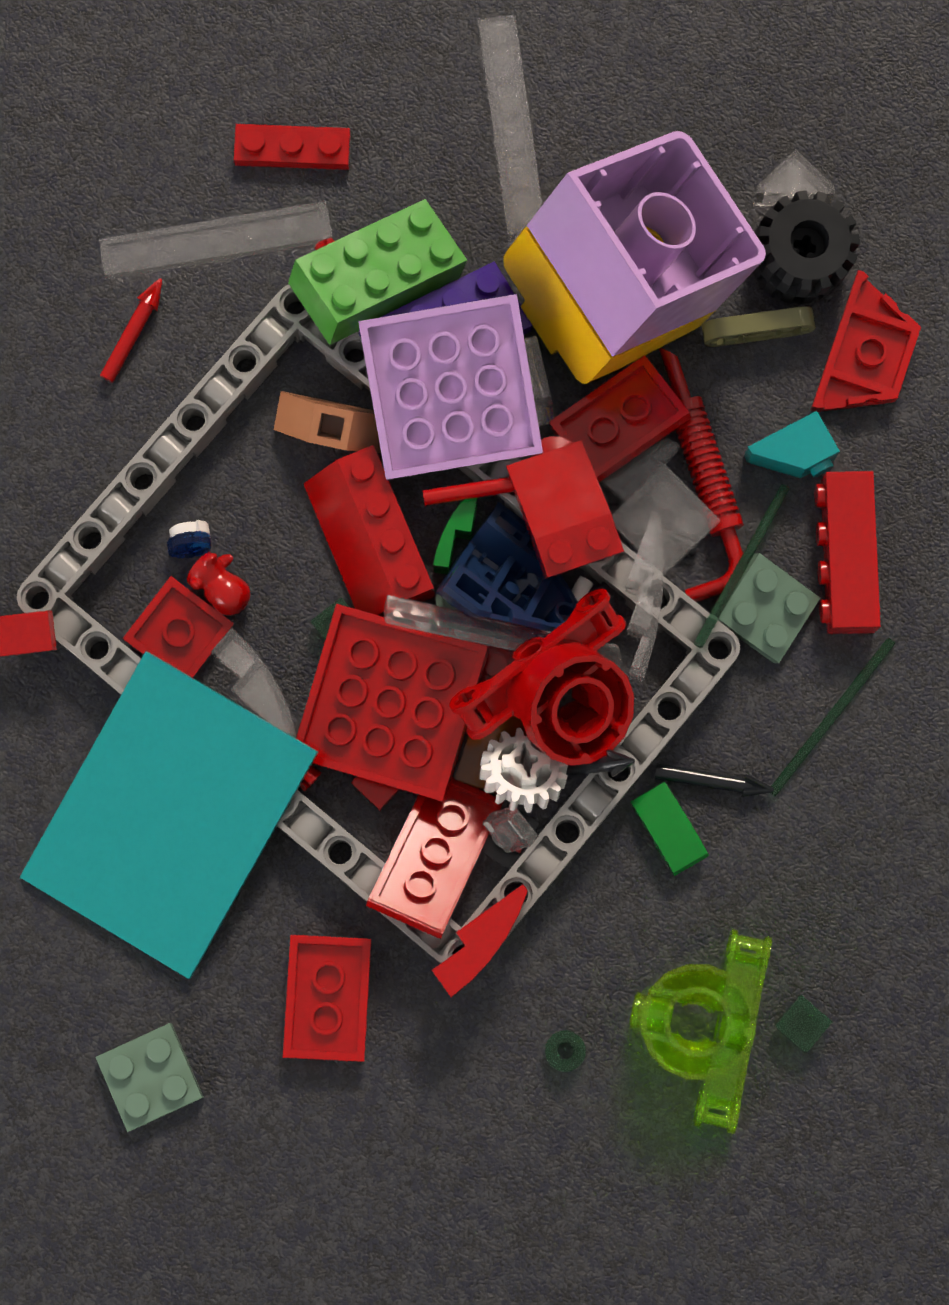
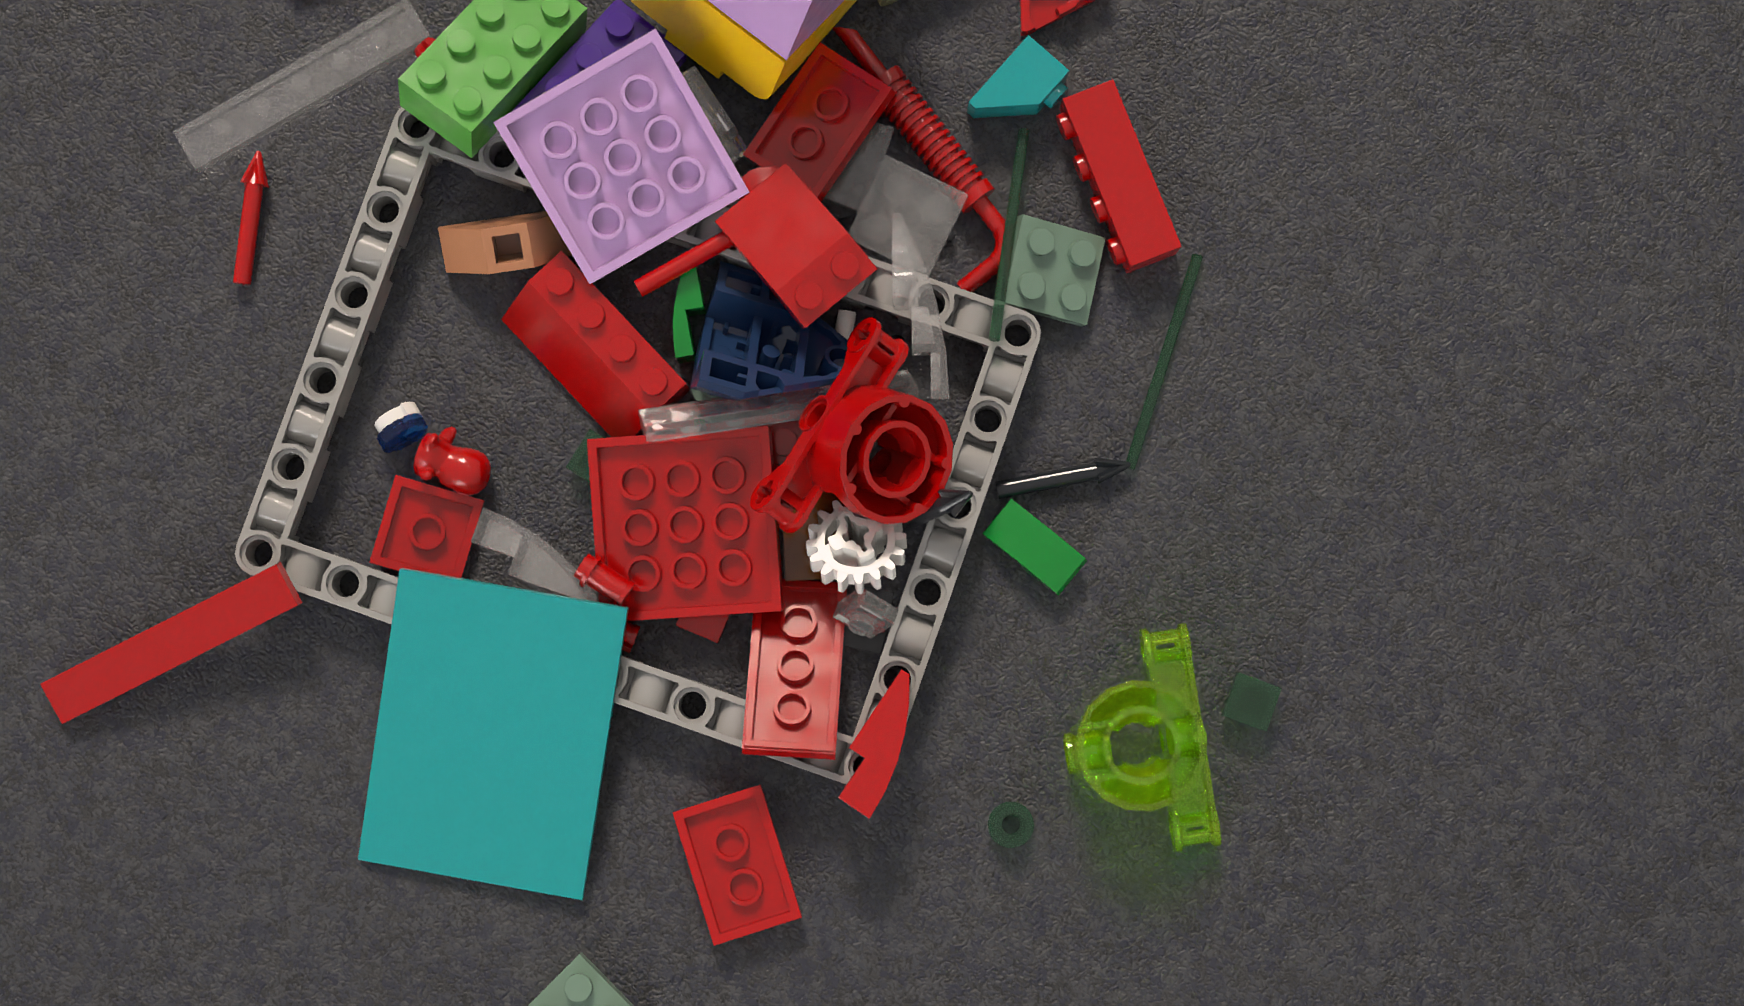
camera: 20 degrees left, 5 degrees up
(307, 721) = (603, 579): none -> red pin

